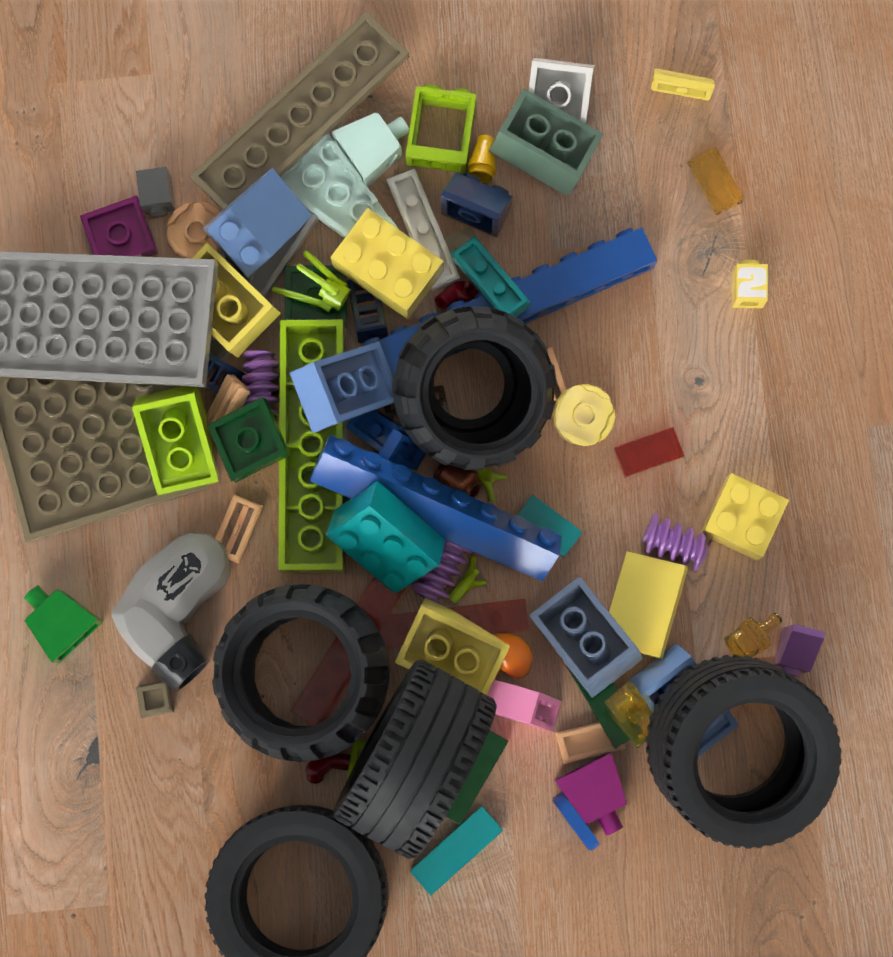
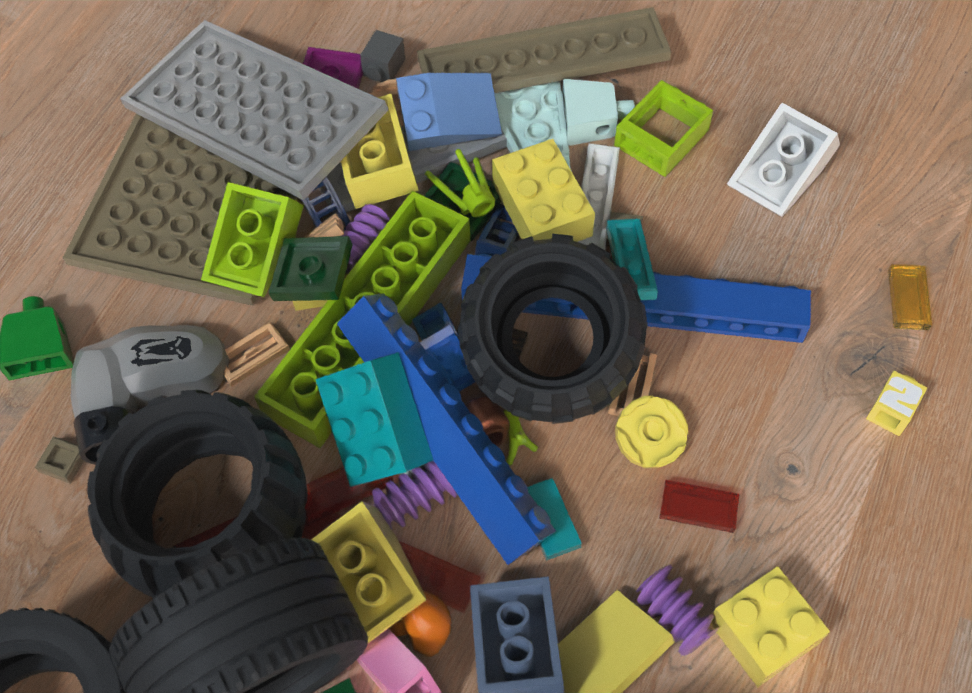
camera: 30 degrees right, 20 degrees down
(344, 386) = (425, 264): medium blue slope -> none
(467, 583) = (431, 526): lime bar -> none
(475, 203) = (656, 197): dark blue slope -> none
(482, 162) = (685, 171): yellow cone -> none
(545, 142) = (755, 178): sand green slope -> none
(682, 84) = (919, 201): light yellow slope -> none

